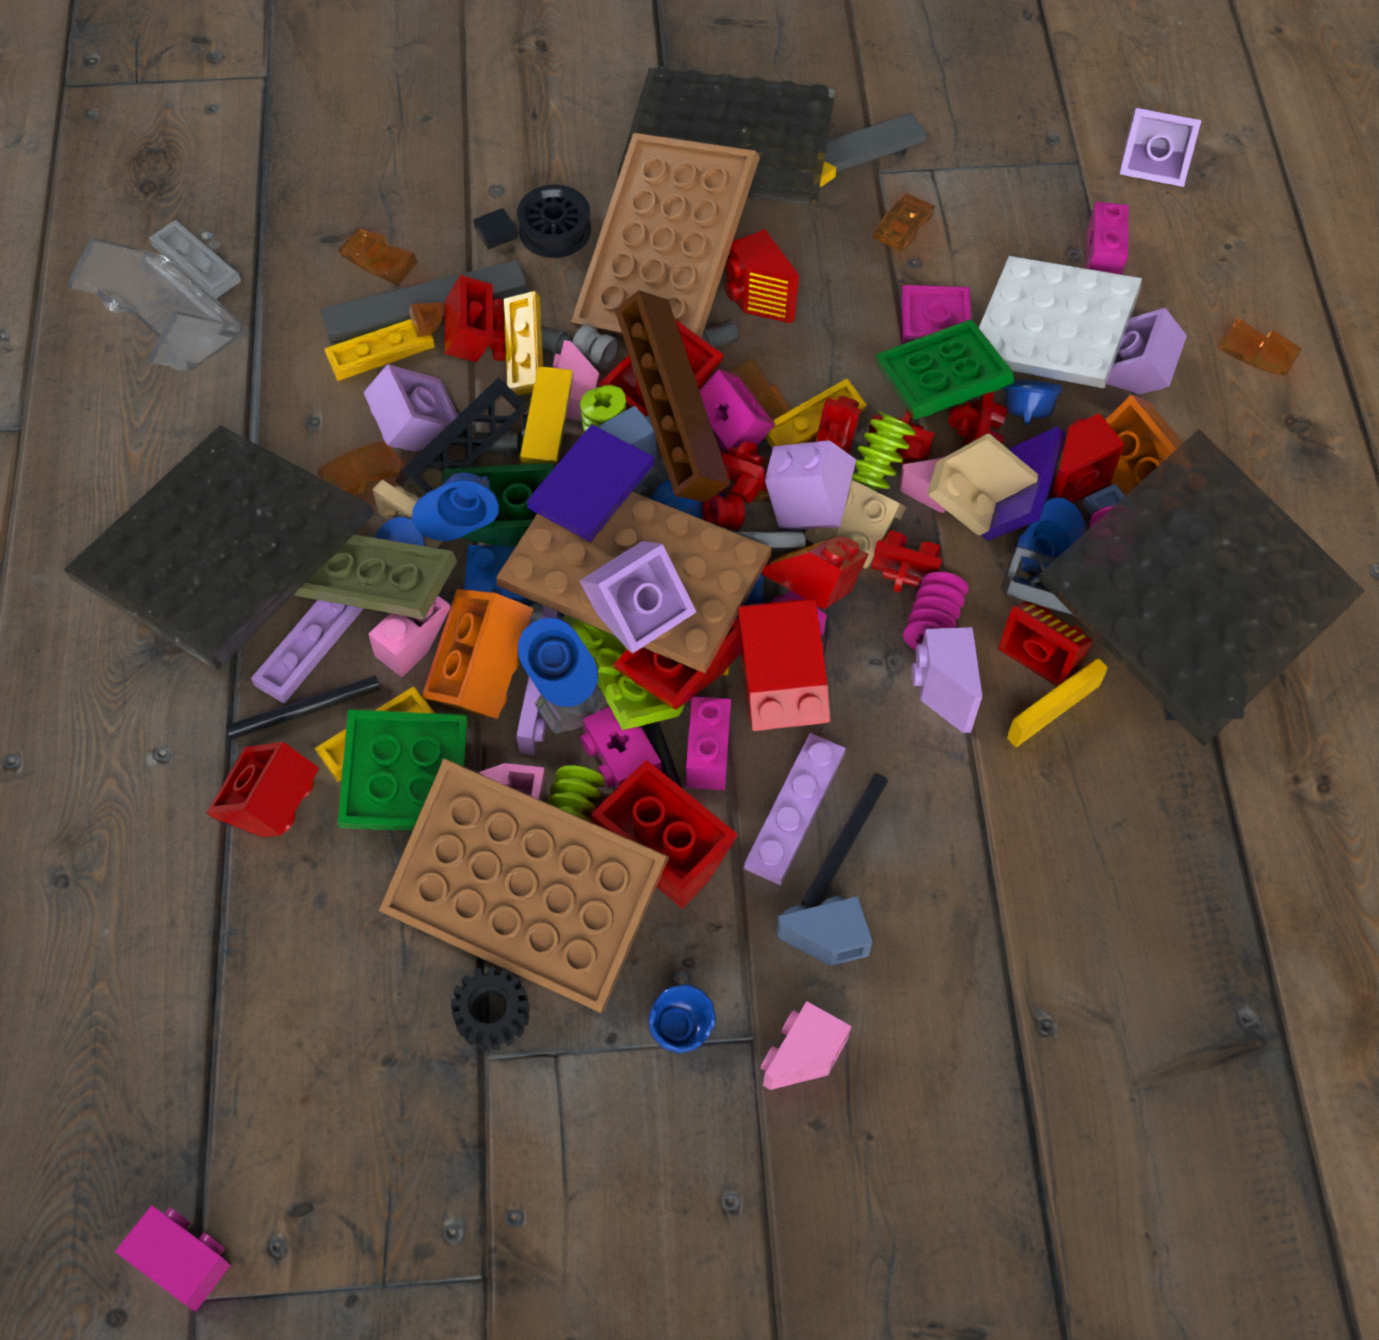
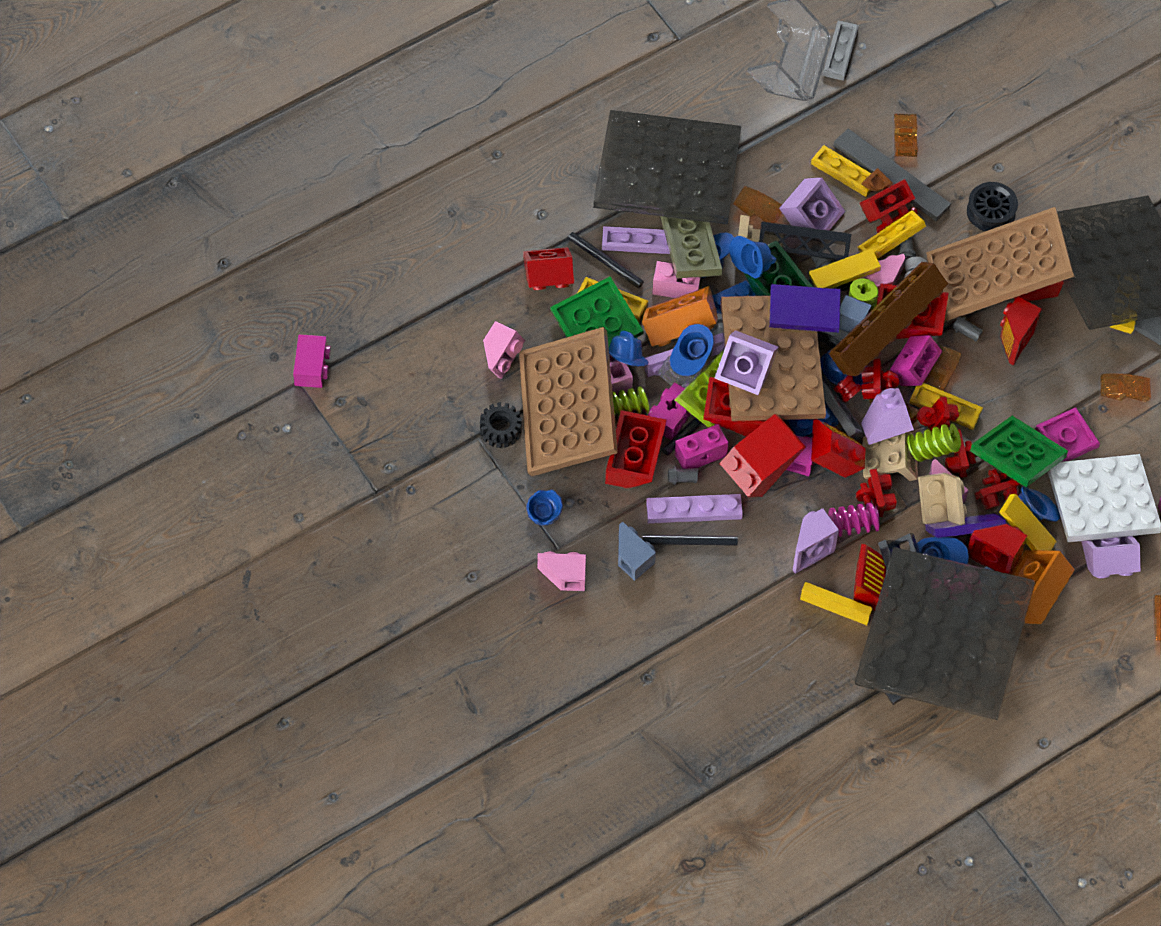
camera: 60 degrees right, 0 degrees up
(357, 931) = (501, 348): none -> bright pink slope
(493, 750) = (627, 349): none -> blue piece
(495, 228) = (967, 180): black tile -> none
(730, 800) = (682, 475): none -> dark grey pin
(1057, 411) = (1019, 516): none -> yellow tile

